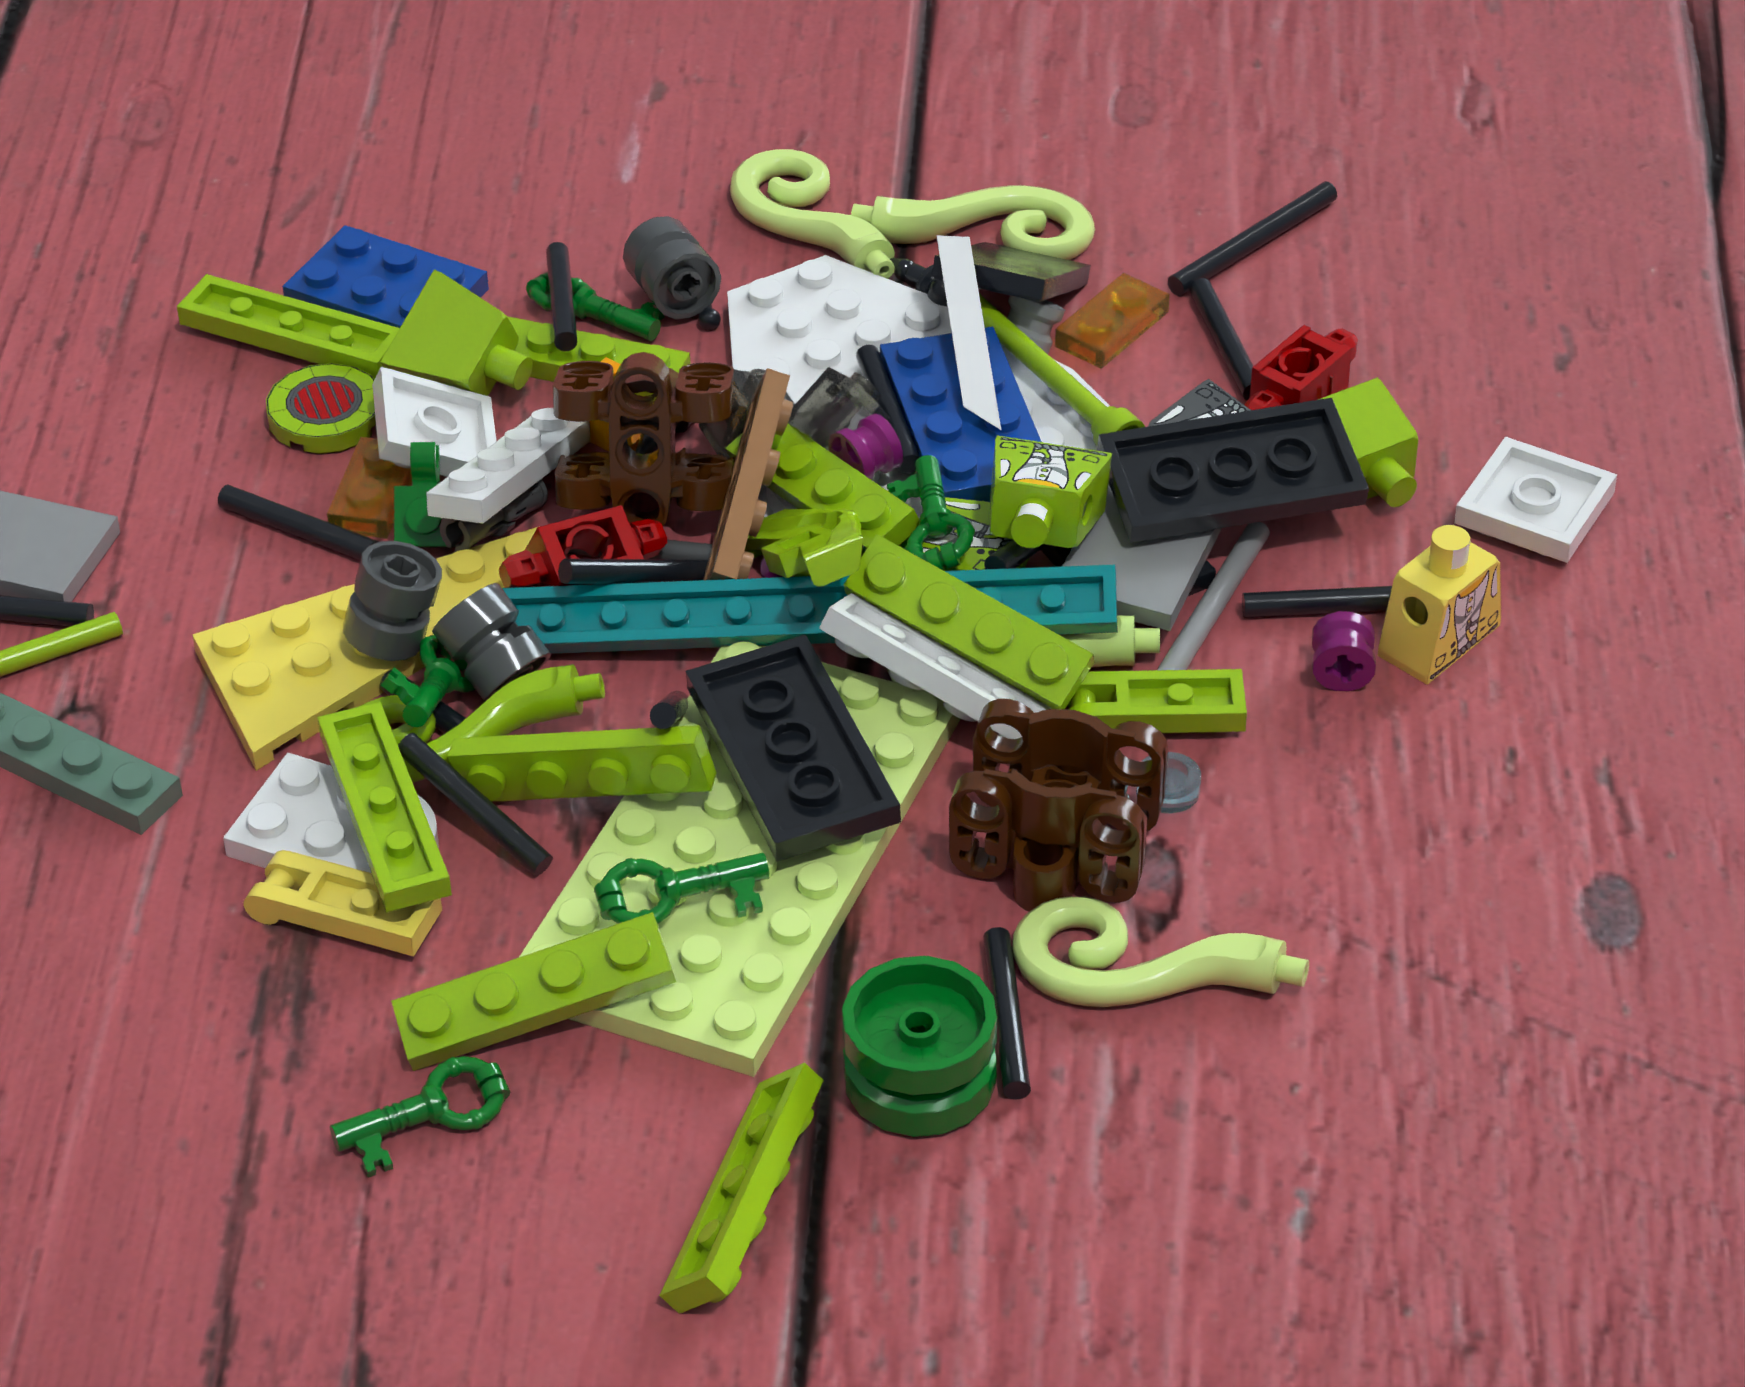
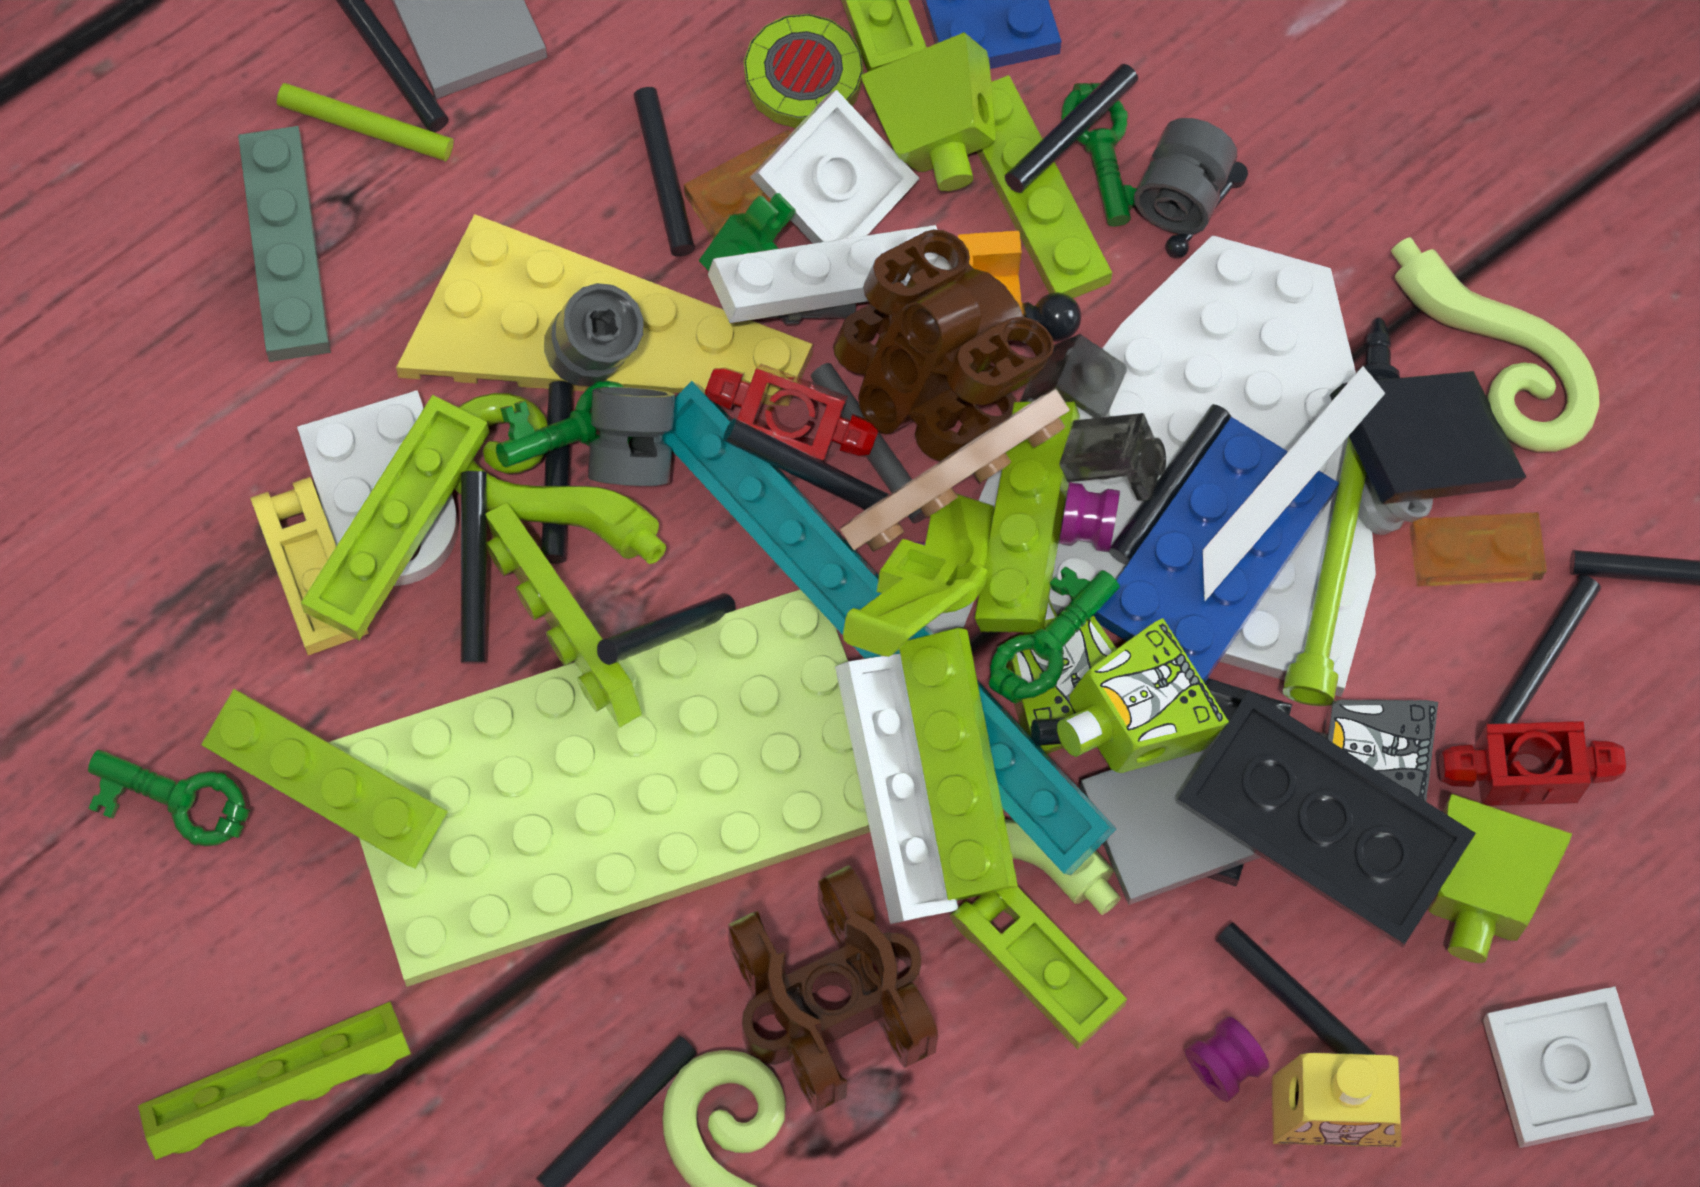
camera: 45 degrees right, 25 degrees up
(671, 886) = (498, 785): green piece -> none
(792, 748) = (713, 746): black plate -> none
(845, 234) = (1372, 269): yellowish green plant -> none
(919, 1045) = (488, 1057): green wheel -> none
(1182, 783) = (968, 1036): clear light blue tile -> none
(1216, 597) = (1186, 911): light grey bar -> none

